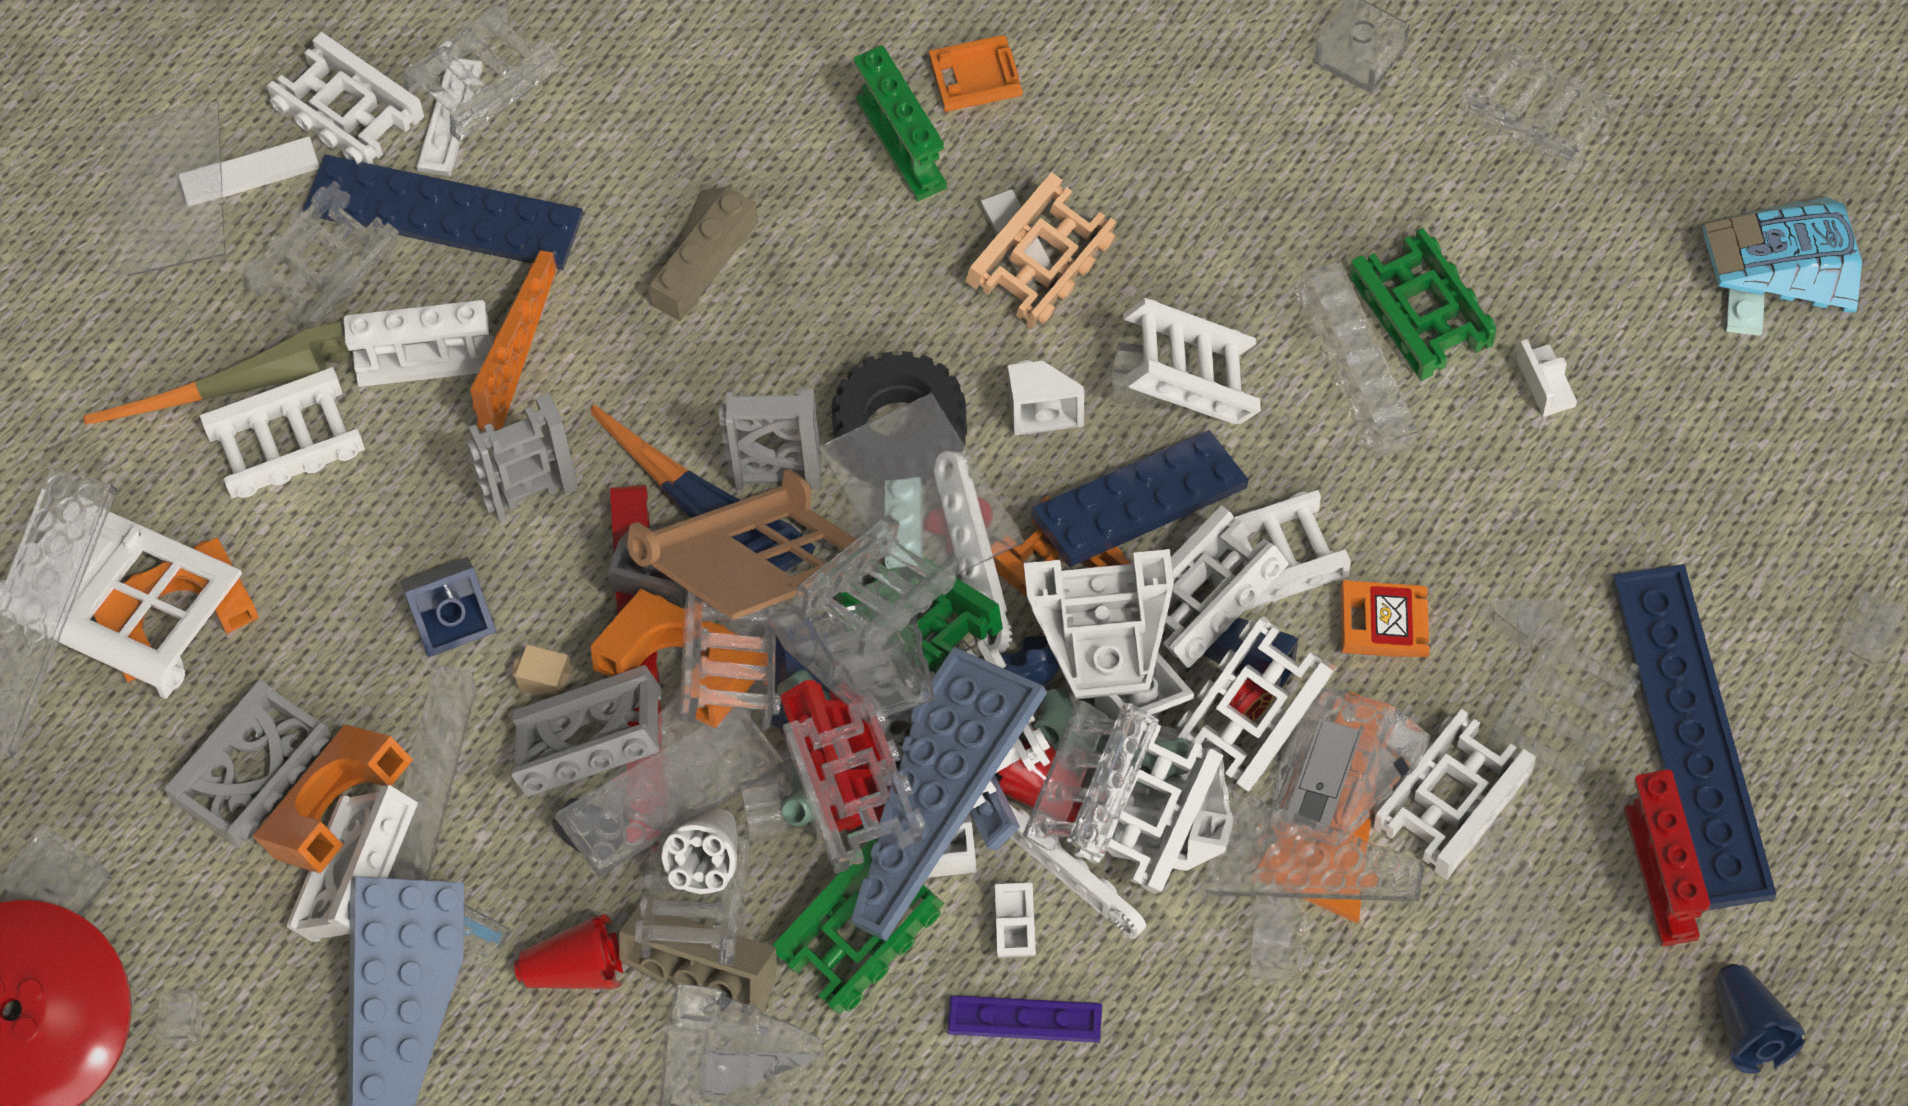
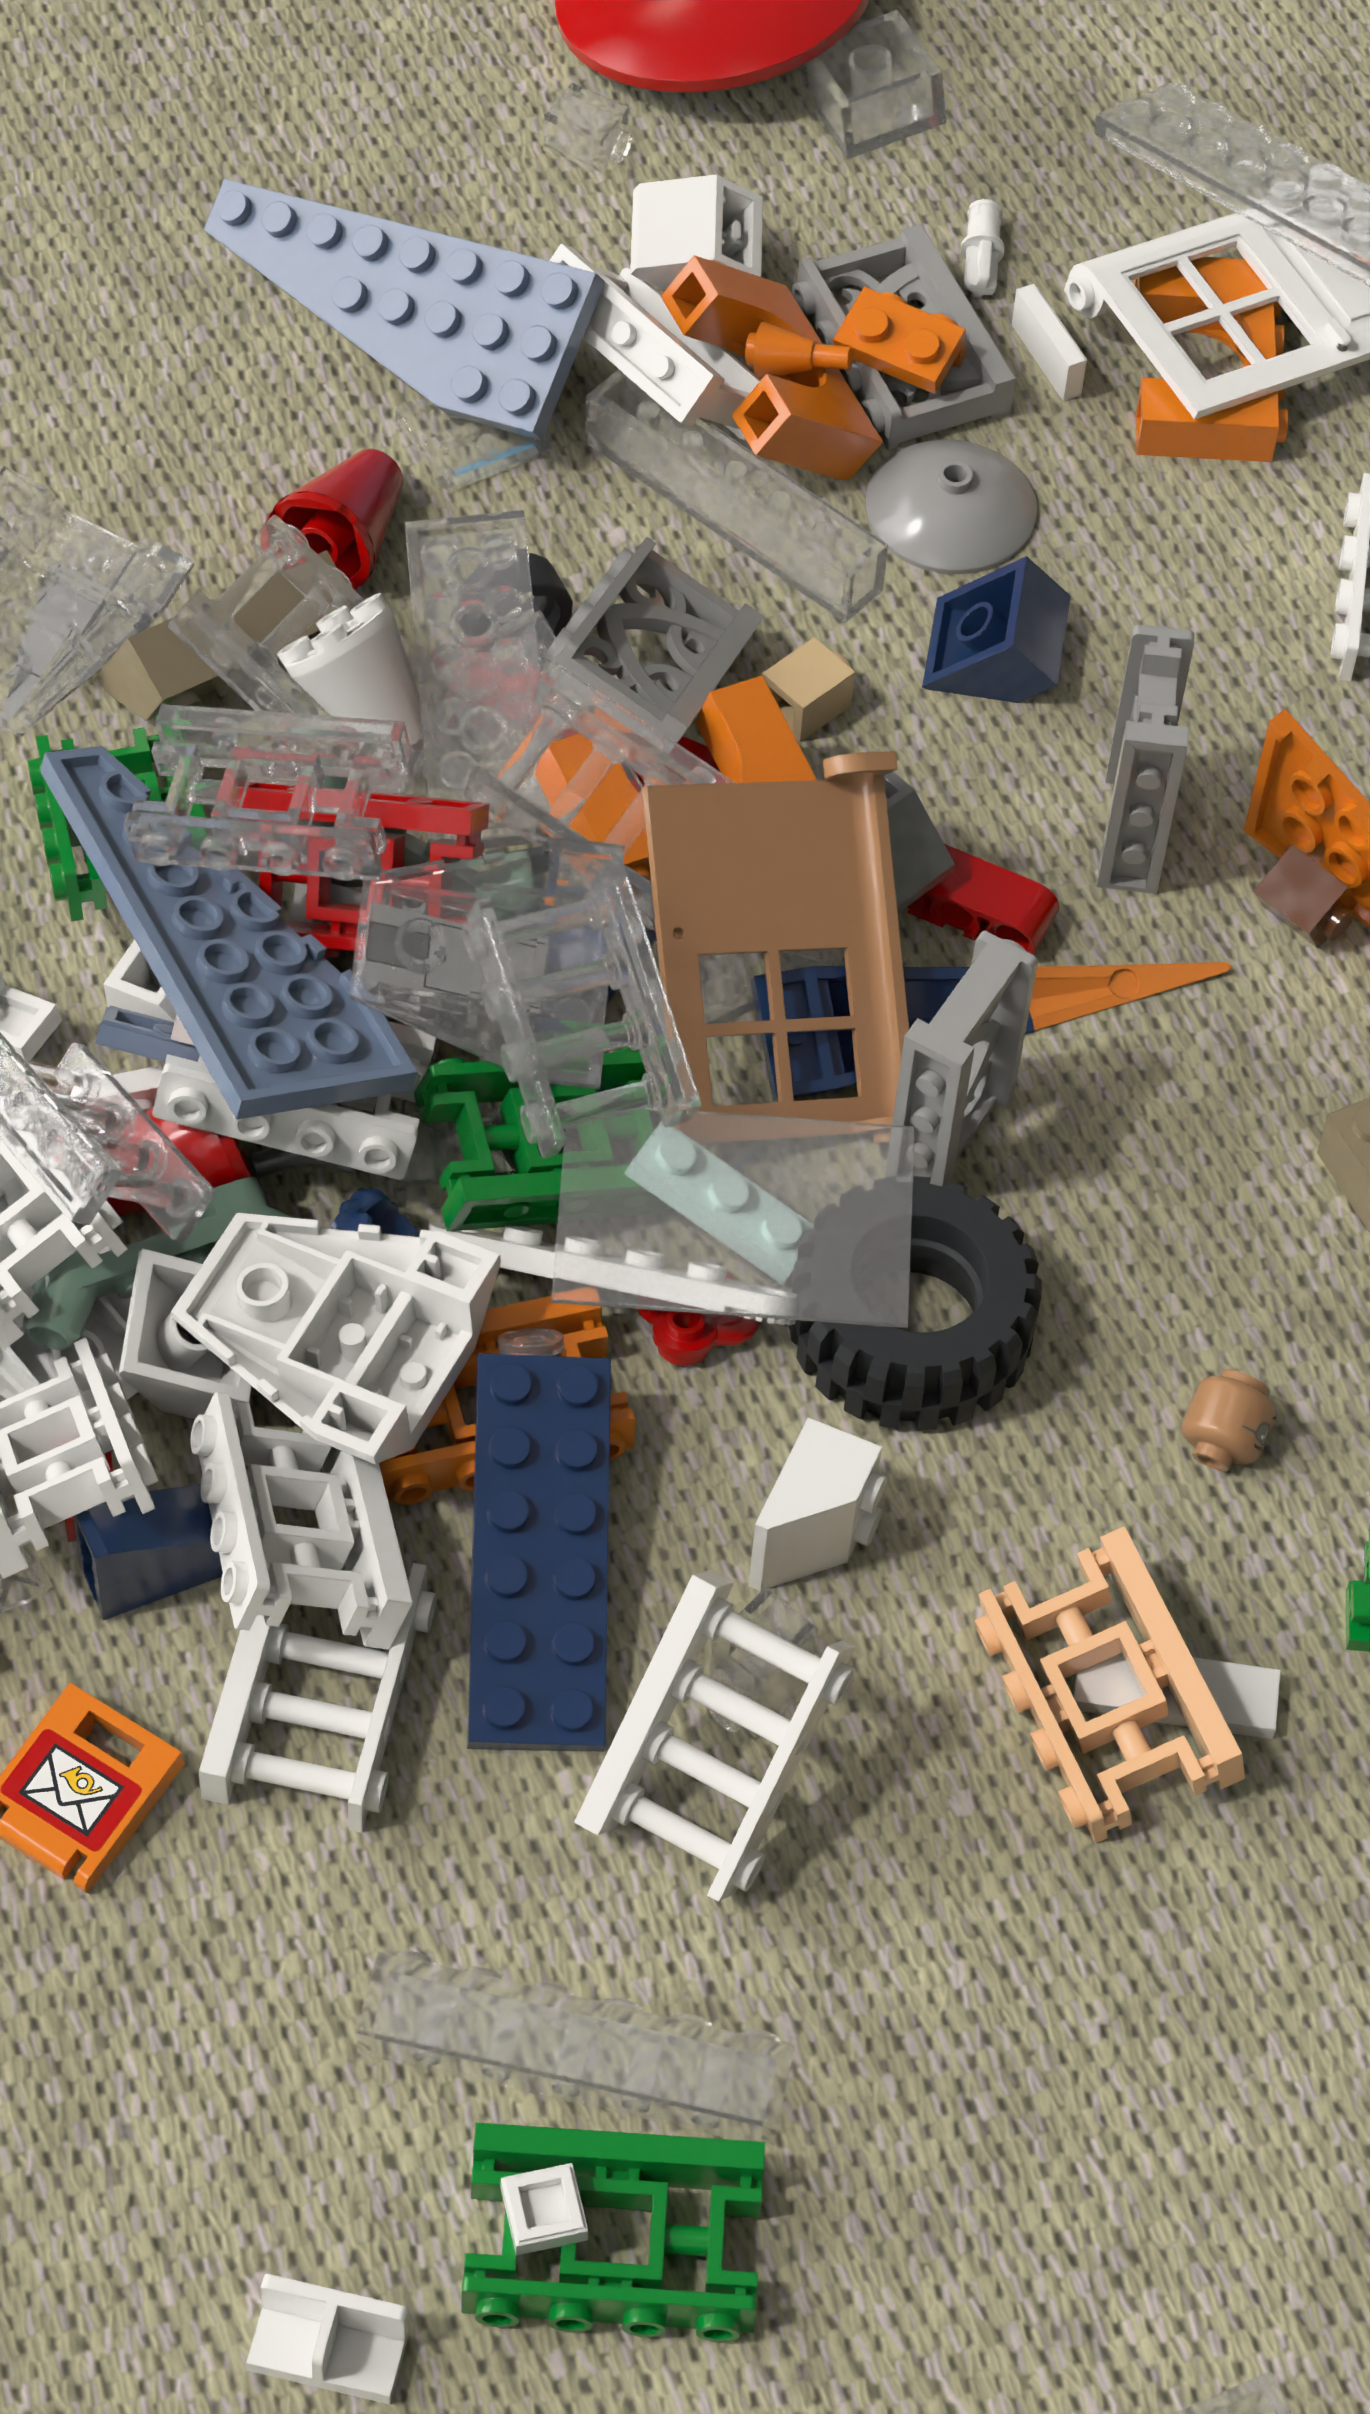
camera: 115 degrees right, 5 degrees down
(148, 766) = (982, 247): none -> white axle
(209, 689) = (1049, 342): none -> white tile
(247, 895) = (692, 218): none -> white slope
(272, 742) = (902, 339): none -> orange bracket
(318, 796) = (784, 352): none -> orange cone
(363, 701) = (951, 506): none -> light grey dish
(535, 378) = (1307, 897): none -> reddish brown brick
(867, 276) = (1229, 1420): none -> medium nougat head
(1041, 549) = (531, 1342): none -> clear piece
(1440, 321) = (544, 2209): none -> white tile

